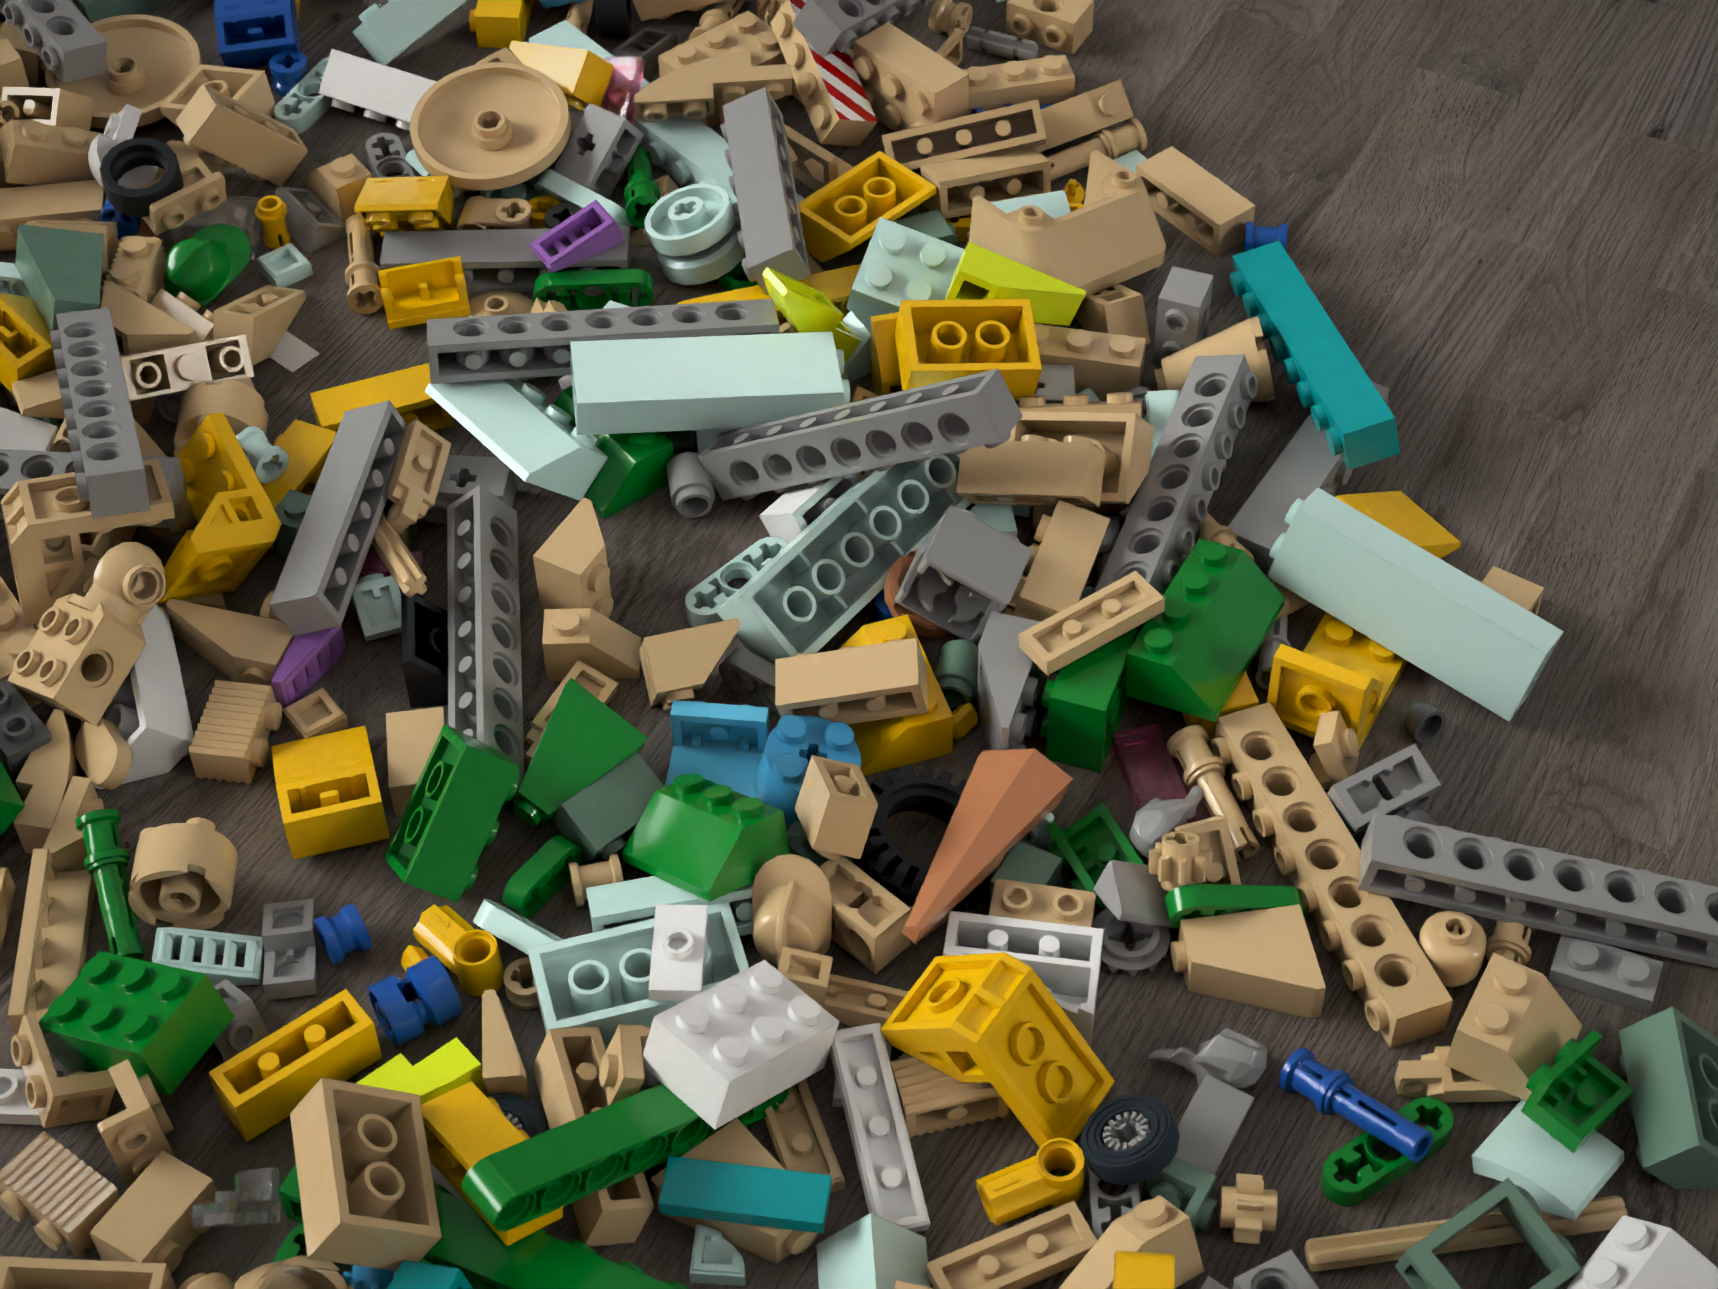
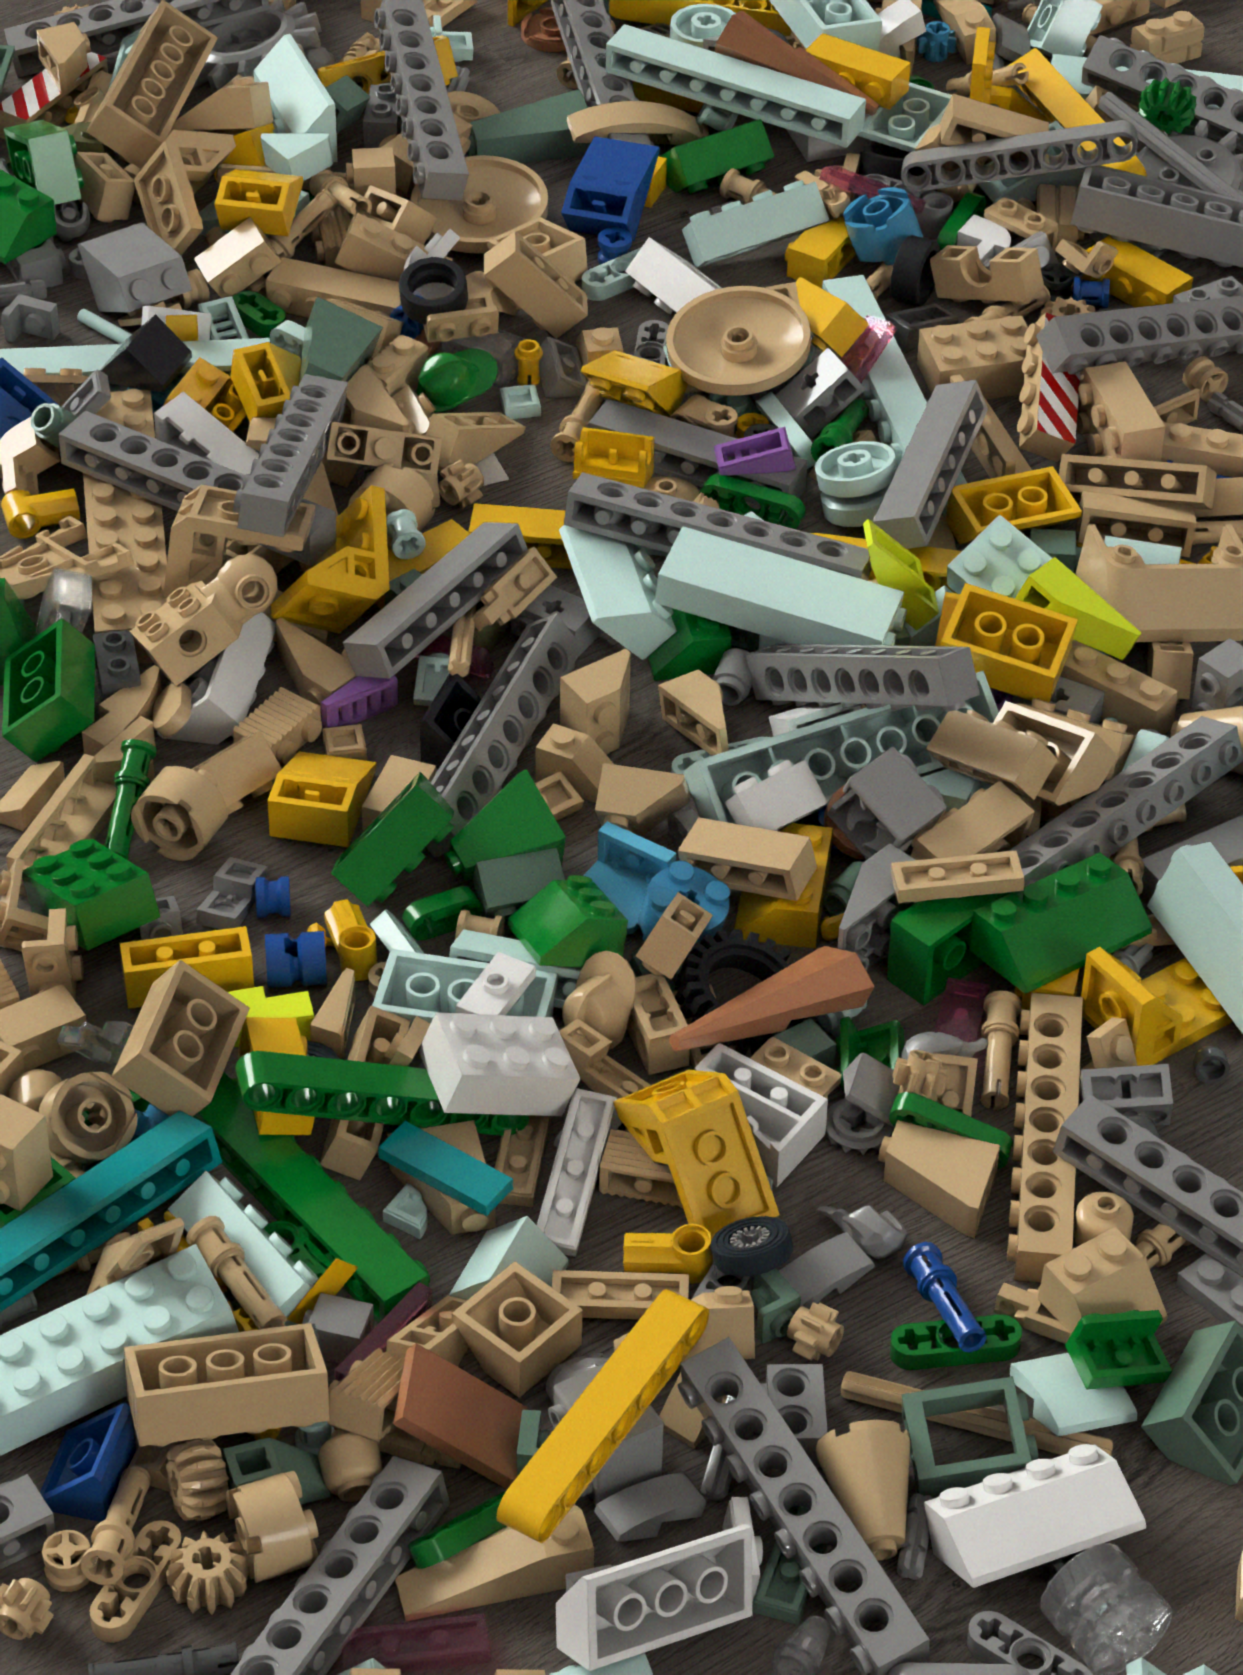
camera: 25 degrees right, 5 degrees down
(192, 942) = (158, 861): light aqua slope -> none
(223, 790) = (243, 769): none -> tan brick
(278, 376) = (461, 484): none -> tan gear
(684, 537) = (696, 710): none -> tan slope
(694, 87) = (930, 362): tan slope -> none
(840, 606) = (778, 800): none -> white brick

